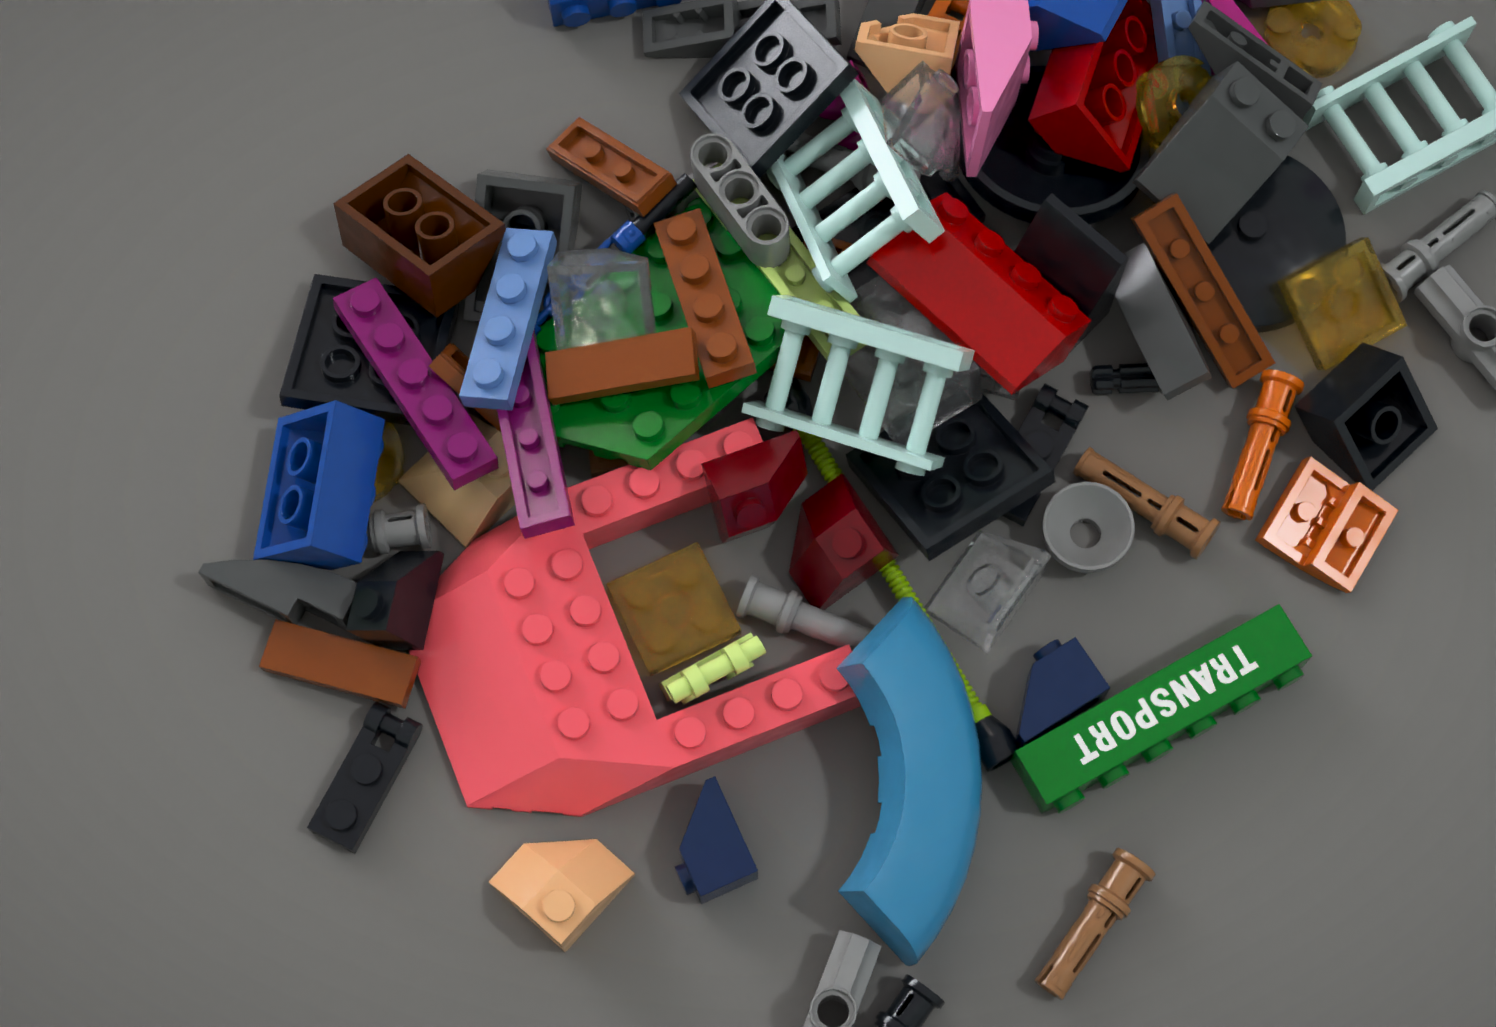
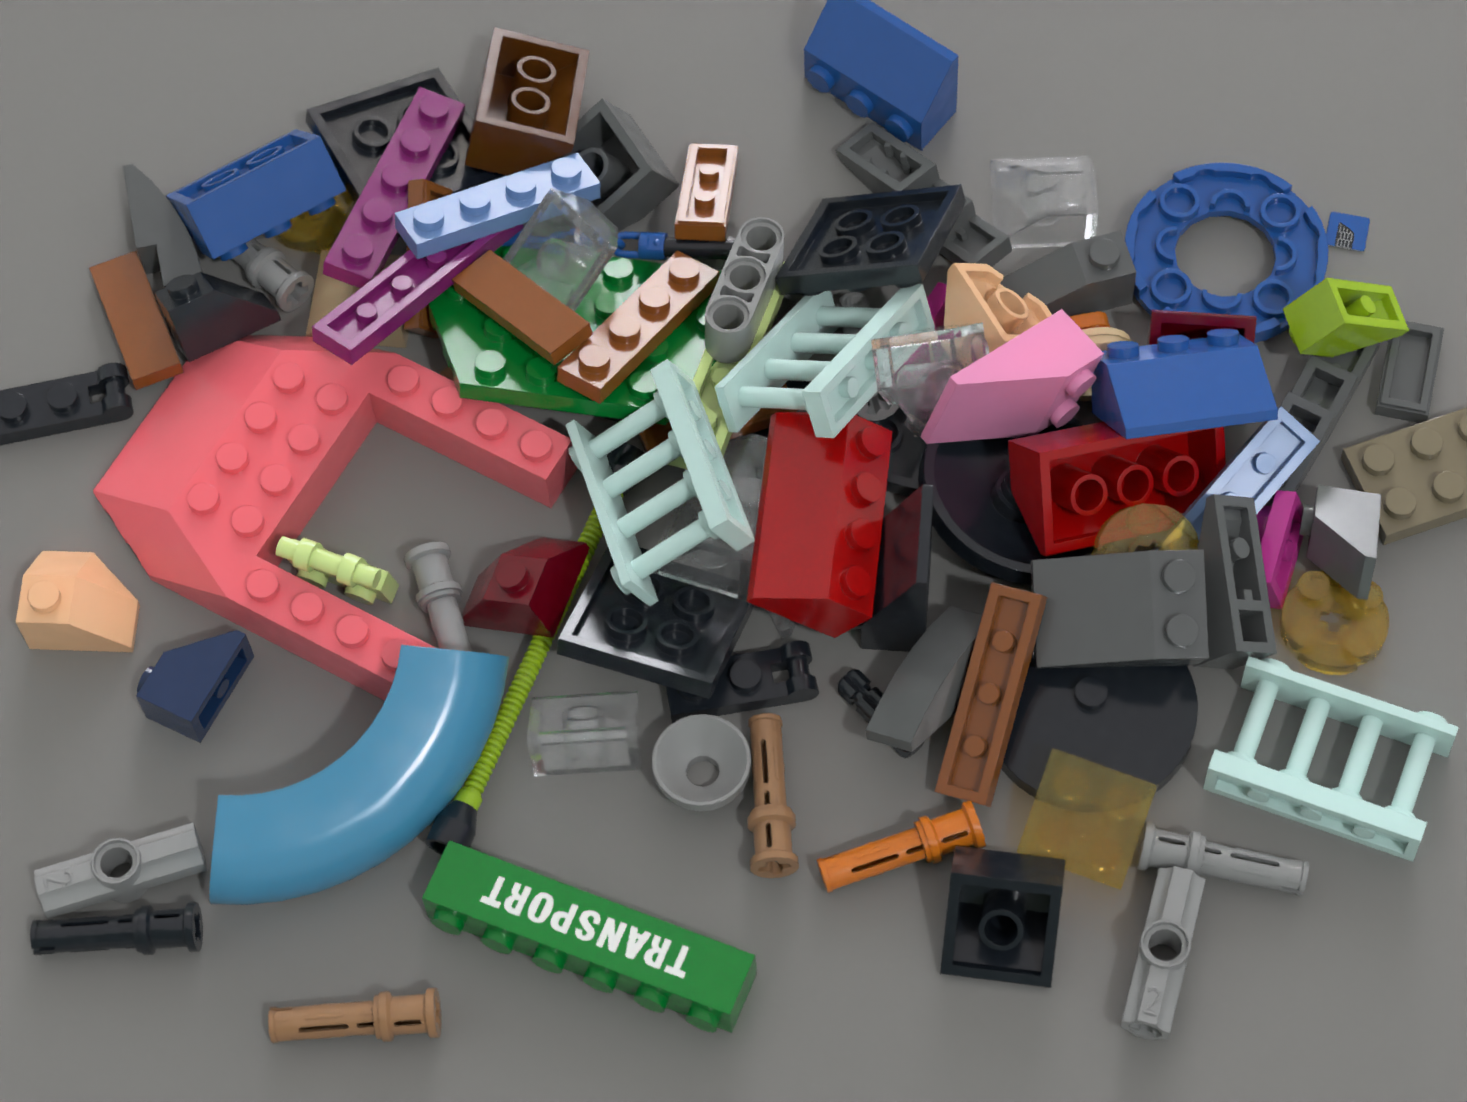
camera: 55 degrees right, 10 degrees down
(674, 609) = (376, 513): clear yellow plate -> none
(754, 484) = (511, 482): dark red slope -> none
(1058, 689) = (538, 838): dark blue slope -> none
(1326, 525) = (876, 957): orange slope -> none

